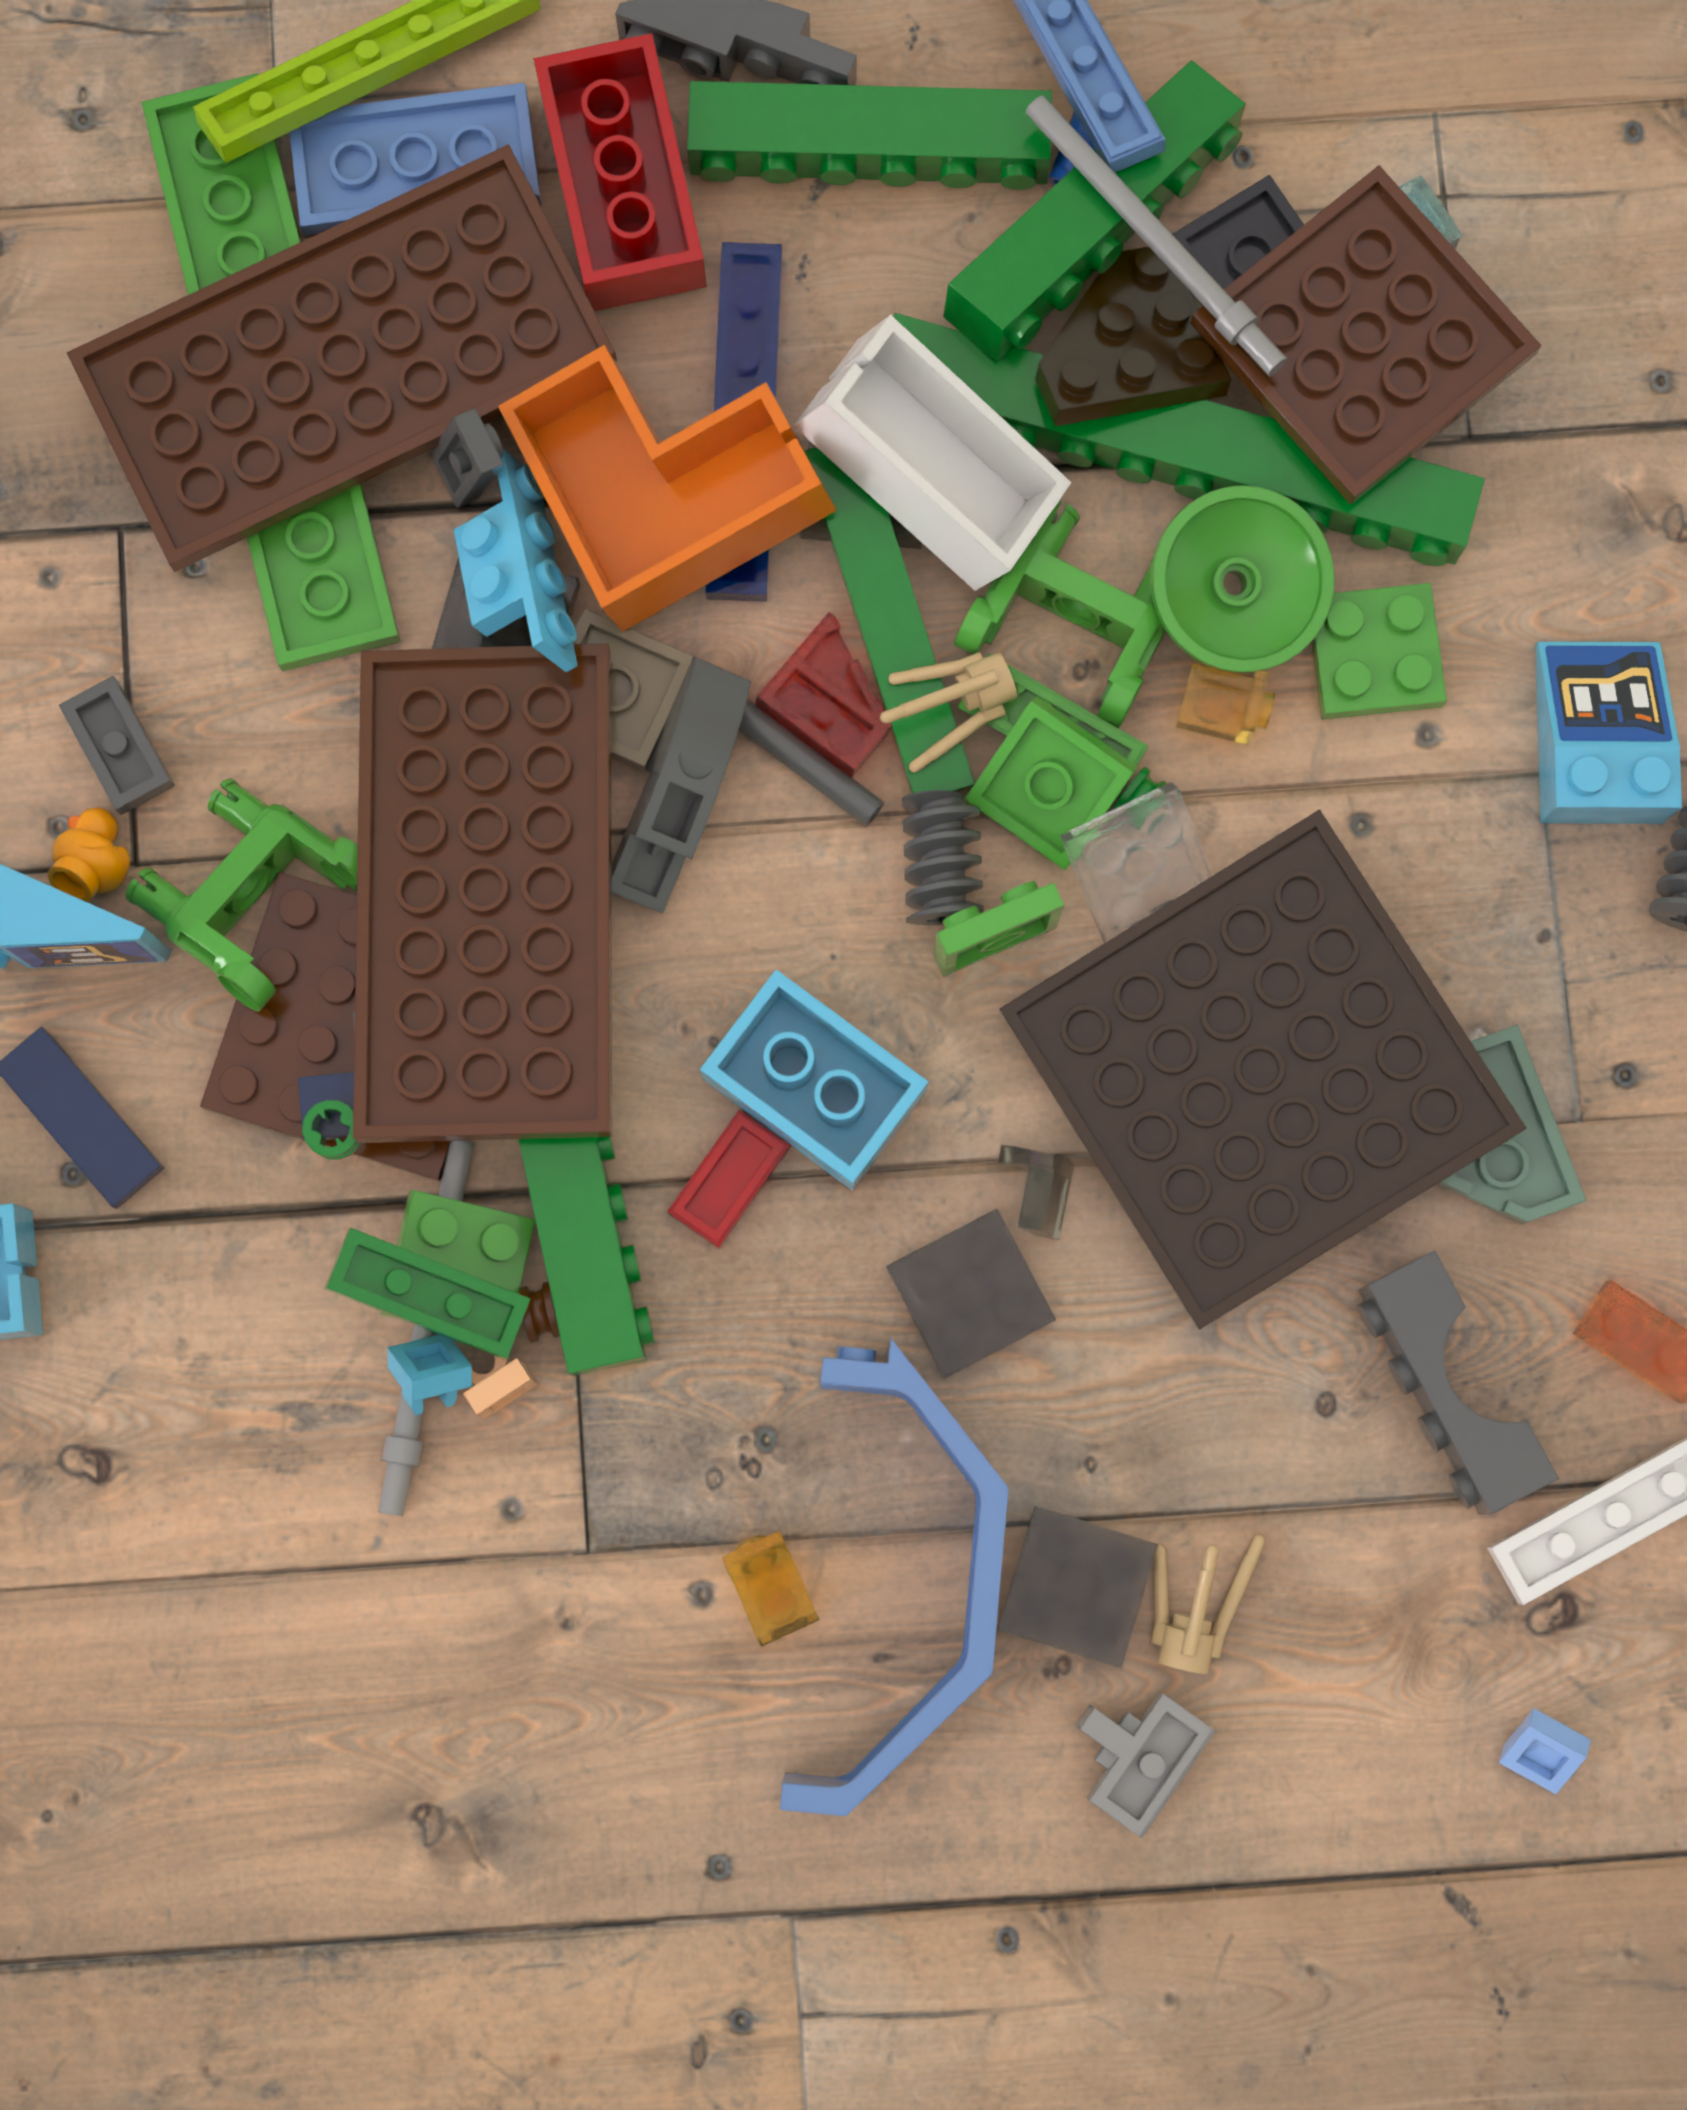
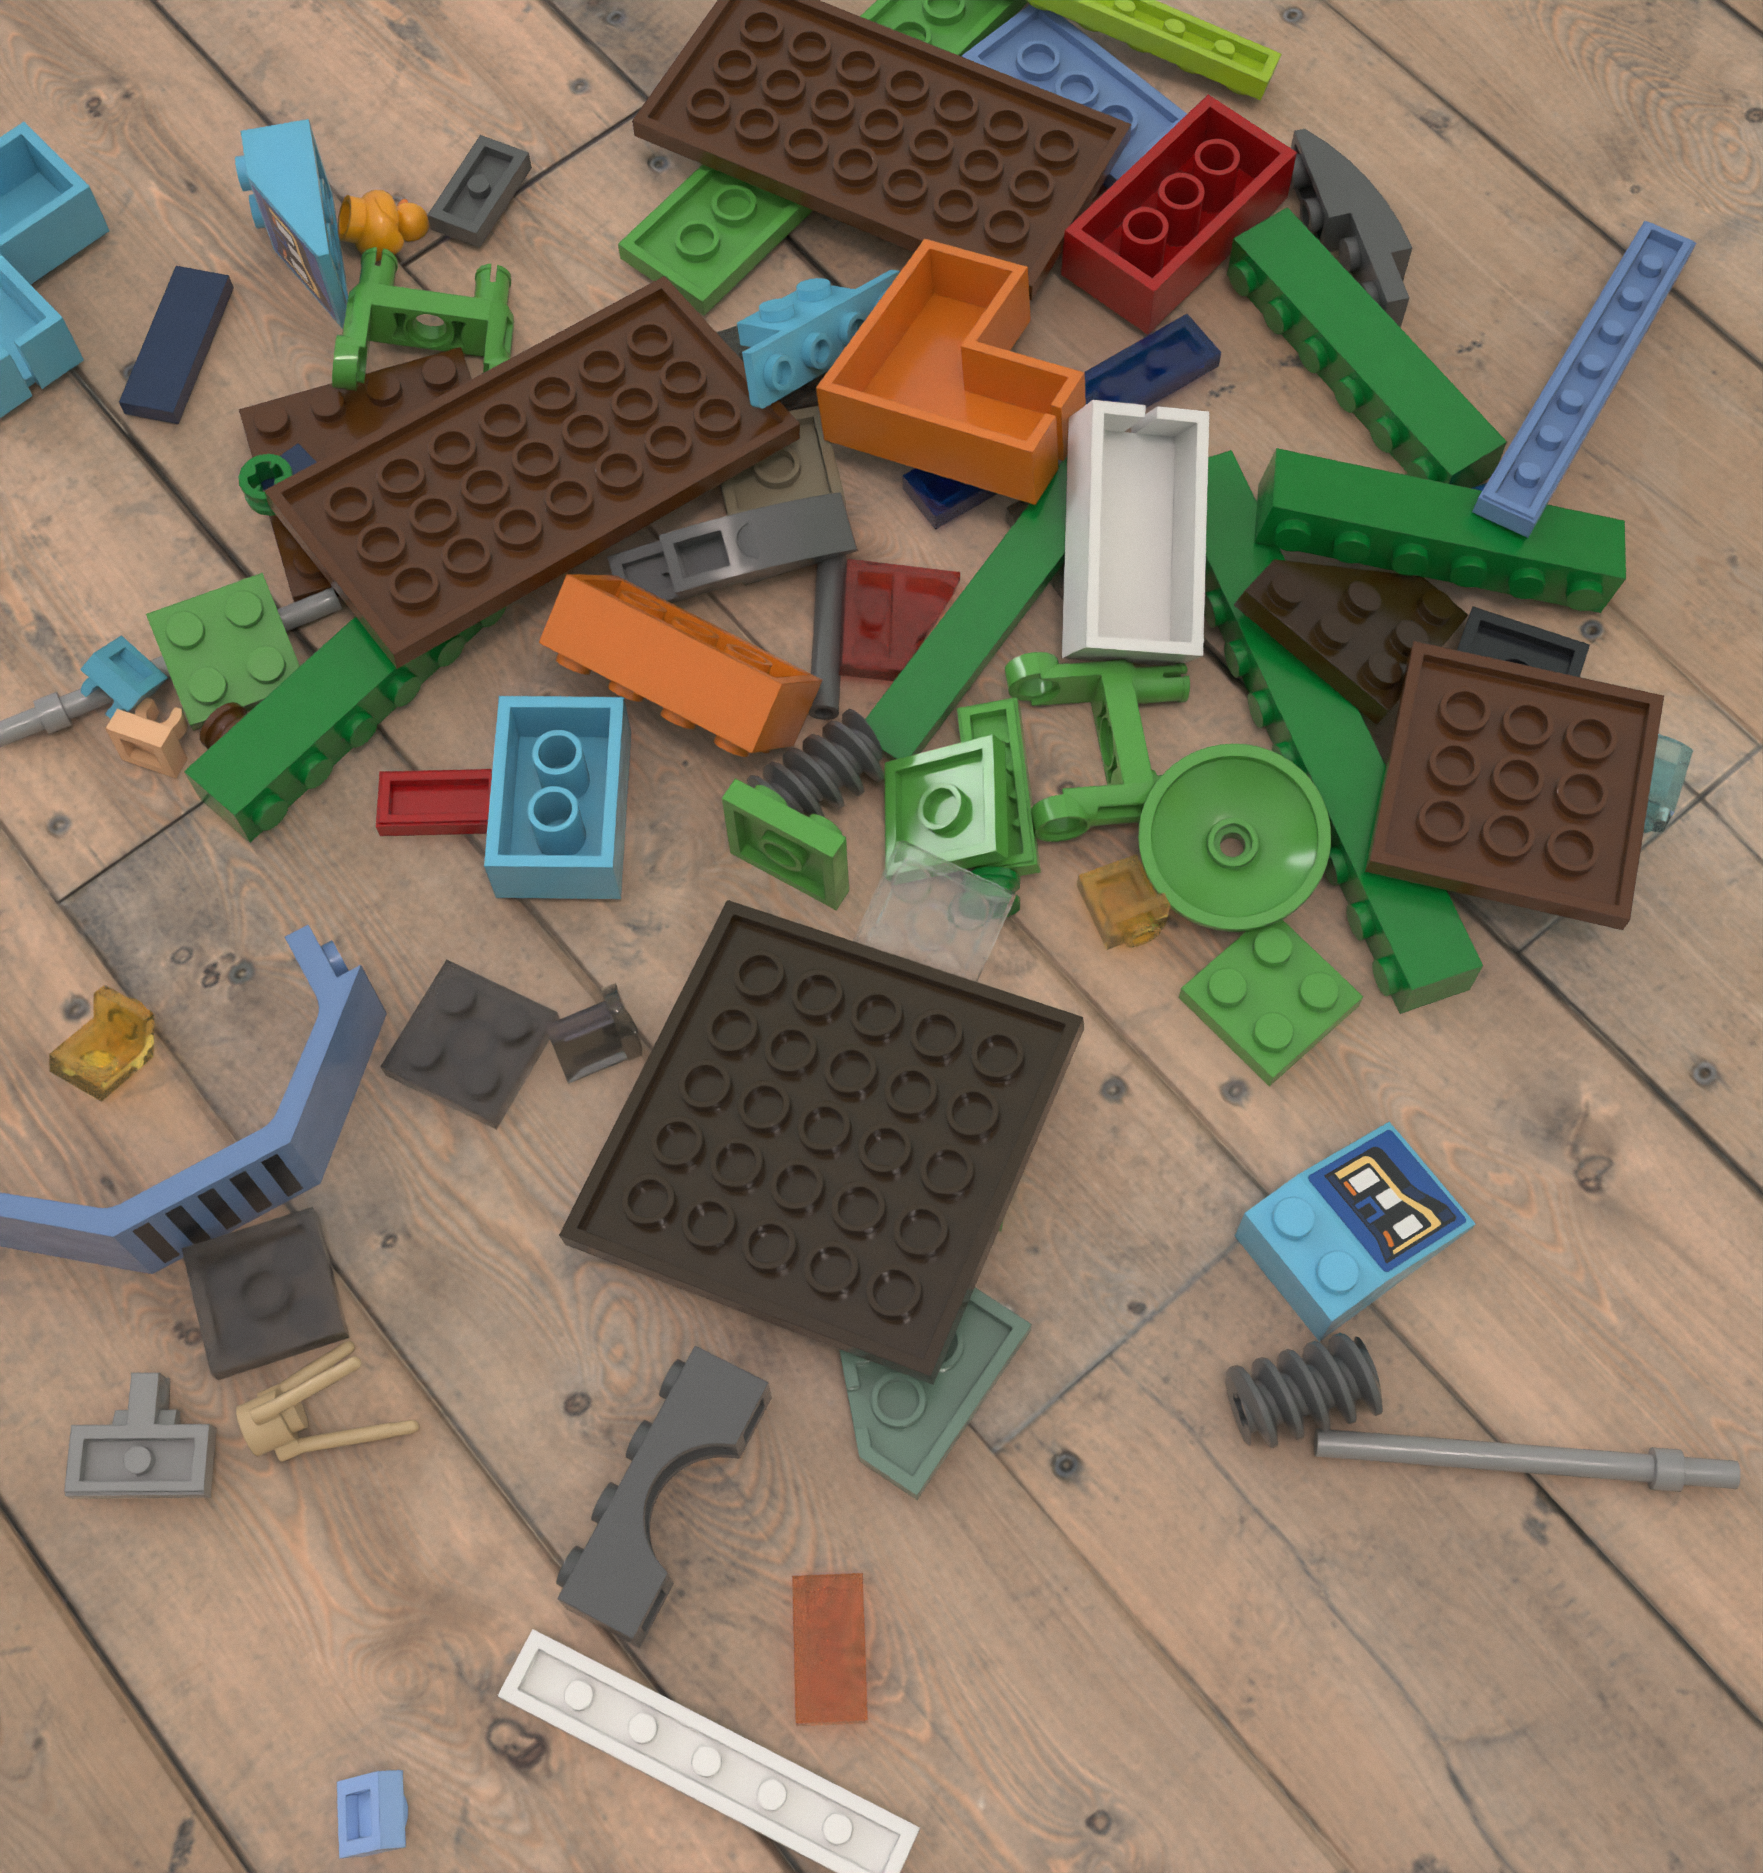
camera: 55 degrees right, 15 degrees down
(427, 1293) = (175, 622): green plate -> none
(467, 457) = (873, 246): dark grey plate -> none
(771, 900) = (679, 663): none -> orange brick
(981, 684) = (981, 698): tan plant -> none
(1234, 320) = (1433, 663): light grey bar -> none

